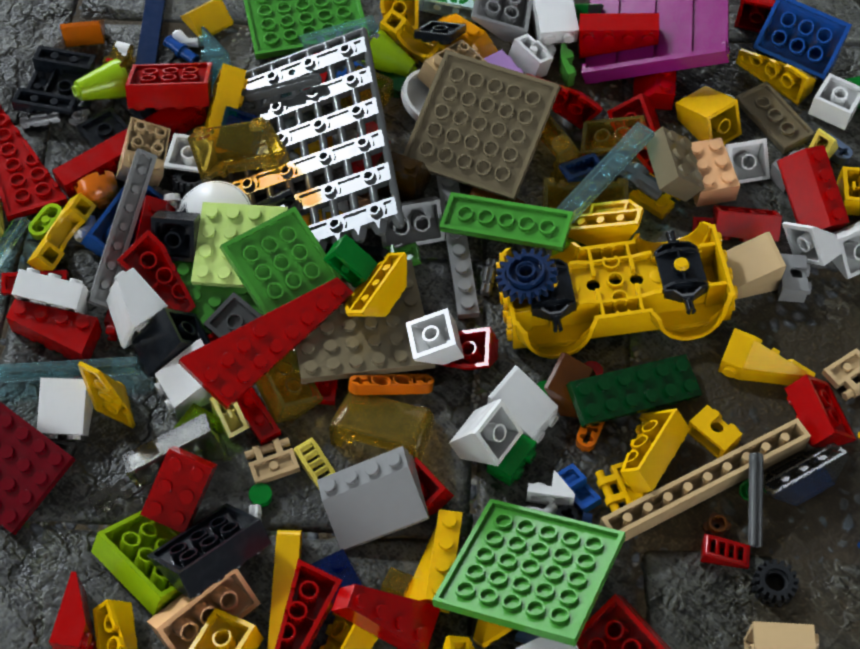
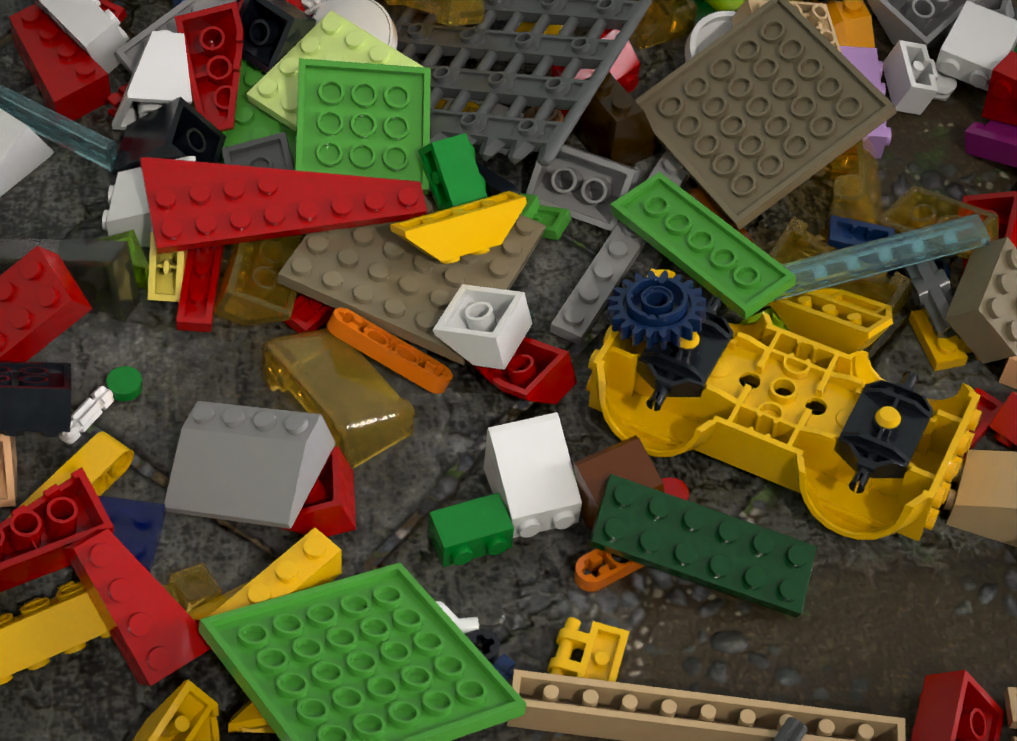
camera: 30 degrees right, 5 degrees down
(107, 395) = (44, 160): yellow wedge -> none
(273, 466) = (171, 361): tan plate -> none
(278, 199) = (430, 58): black axle -> none
(306, 452) = (223, 366): light yellow slope -> none
(487, 434) = (453, 476): white slope -> none
(557, 493) = (489, 607): white slope -> none
(566, 68) = (956, 110): bright green slope -> none
(575, 105) = (912, 152): red wedge -> none
(585, 497) = (527, 624): blue slope -> none
(653, 448) = (665, 635): yellow wedge -> none
(715, 442) = (772, 649): yellow brick -> none
(751, 361) = (904, 613): yellow wedge -> none

